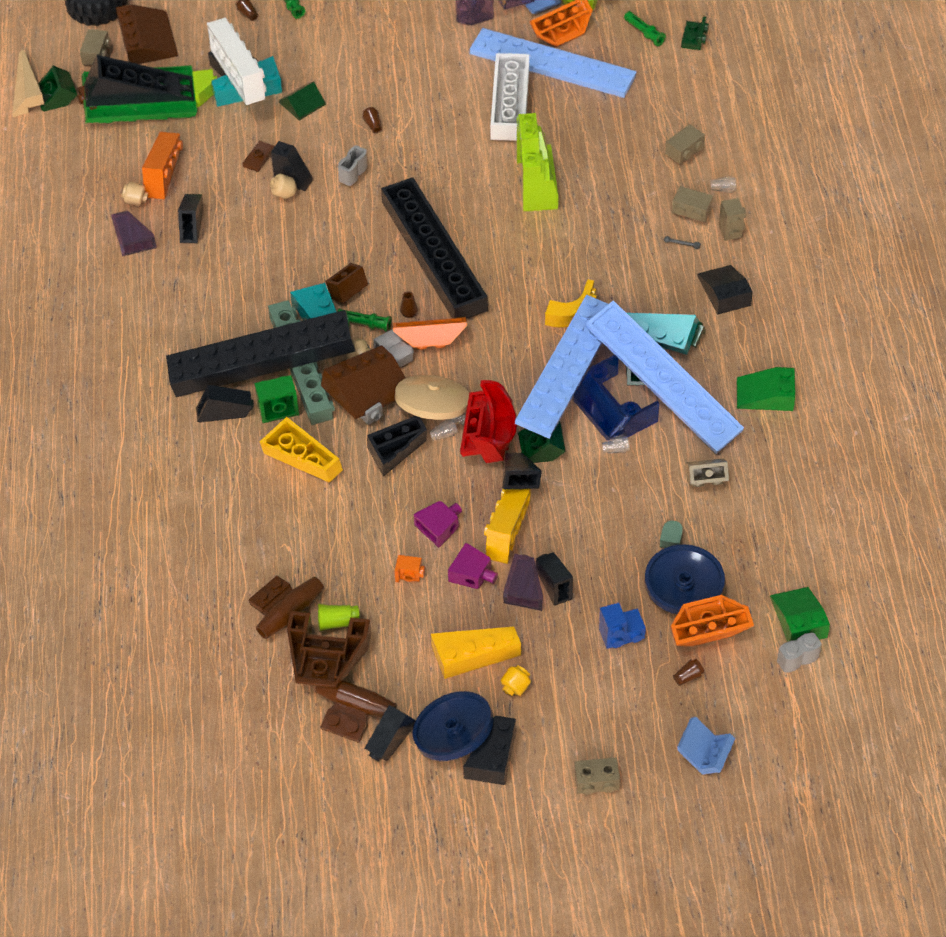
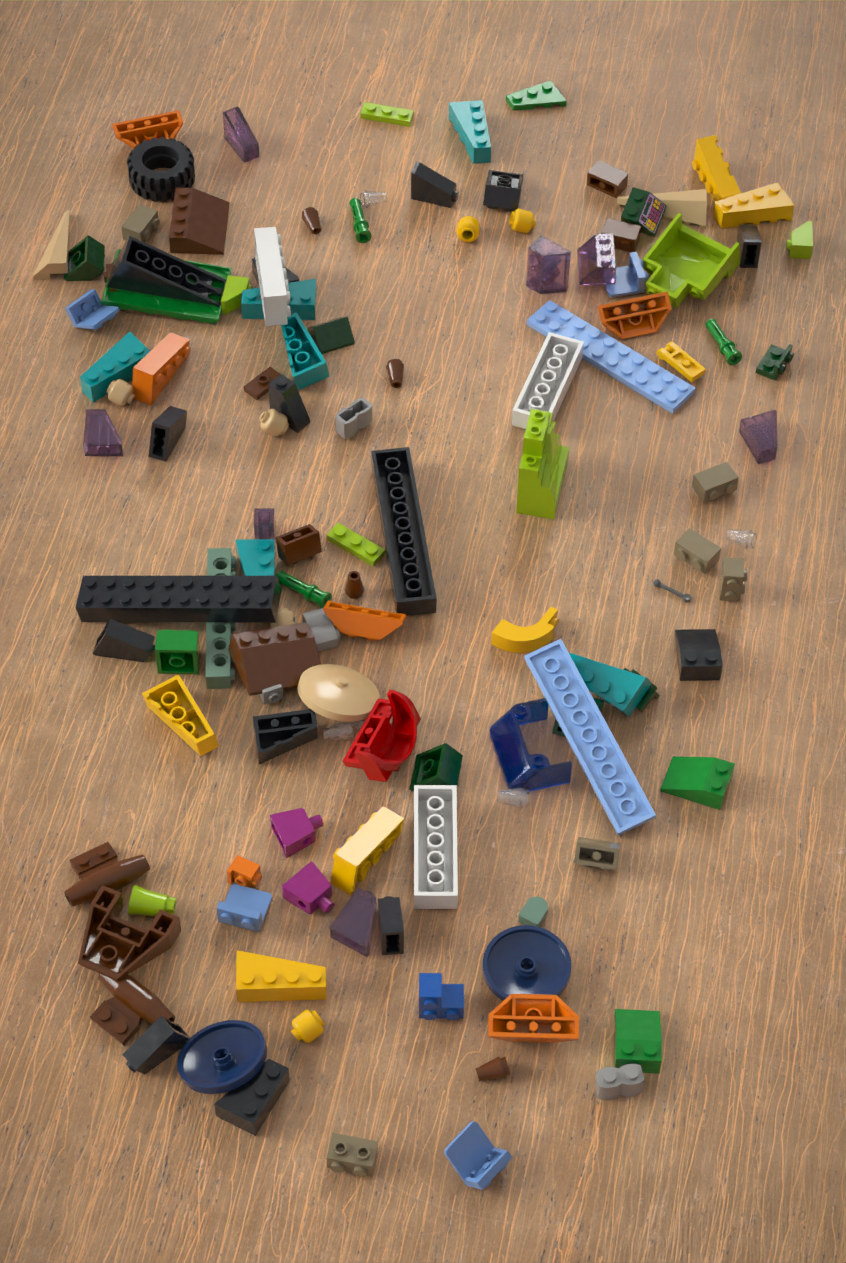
camera: 15 degrees right, 0 degrees up
(77, 133) = (88, 312): none -> medium blue bracket
(123, 168) = (113, 365): none -> teal wedge
(285, 121) = (304, 356): none -> teal wedge
(311, 271) = (265, 524): none -> clear purple slope
(394, 271) = (355, 544): none -> lime plate
(420, 598) = (244, 907): none -> medium blue bracket
(520, 472) = (395, 800): black slope -> none
(562, 373) = (481, 703): light blue plate -> none
(568, 504) = (435, 847): none -> white brick
(615, 52) = (681, 361): none -> yellow plate
(707, 97) = (761, 435): none -> clear purple slope

